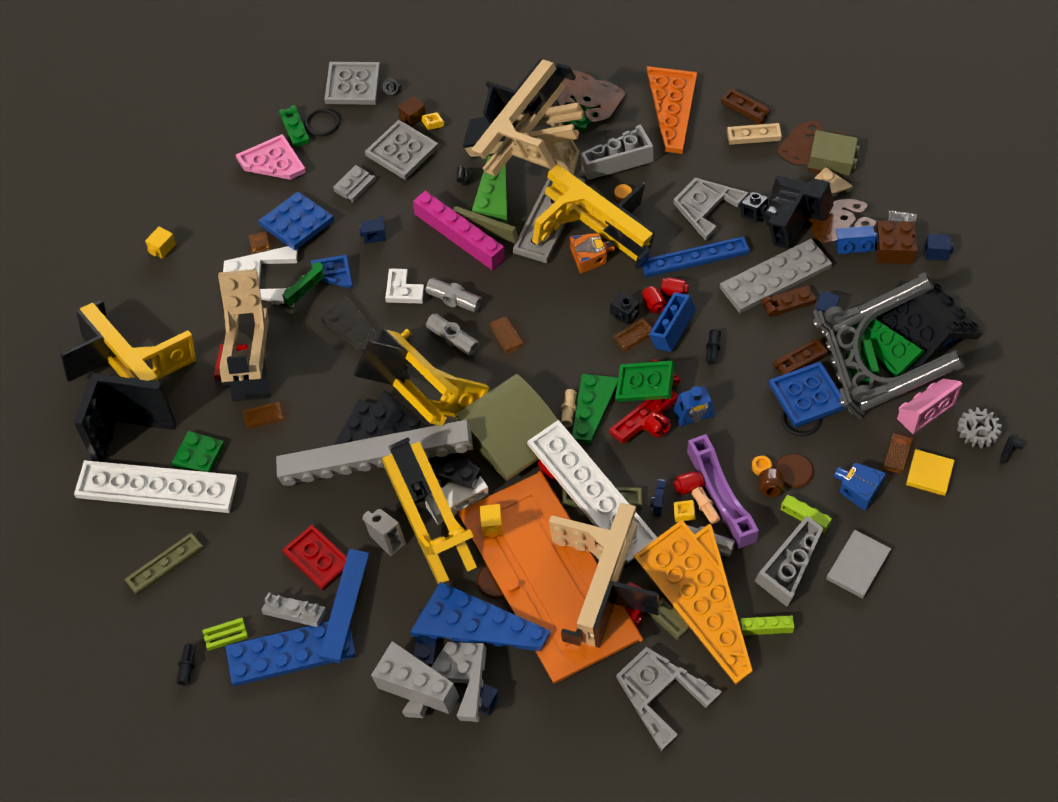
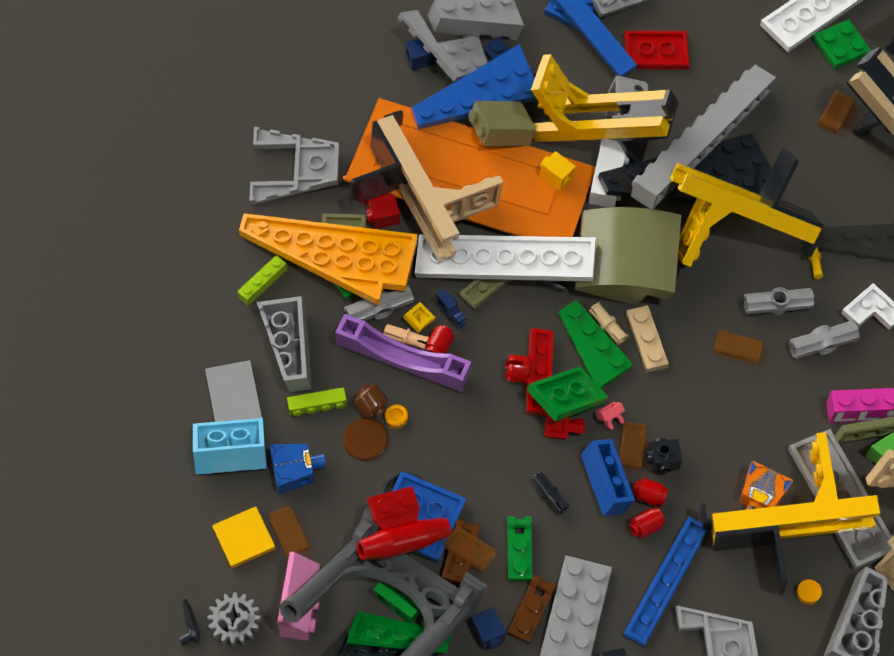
camera: 130 degrees right, 5 degrees up
(492, 581) = (502, 123): none -> olive brick
(556, 380) = (647, 339): none -> tan plate
(627, 356) = (609, 412): none -> coral tile
(693, 406) = (505, 409): blue torso -> none
(763, 334) = (519, 549): none -> green plate
(796, 350) = (470, 548): none -> clear orange tile
(834, 379) = (399, 524): none -> red plate
(892, 528) = (229, 446): none -> medium azure slope

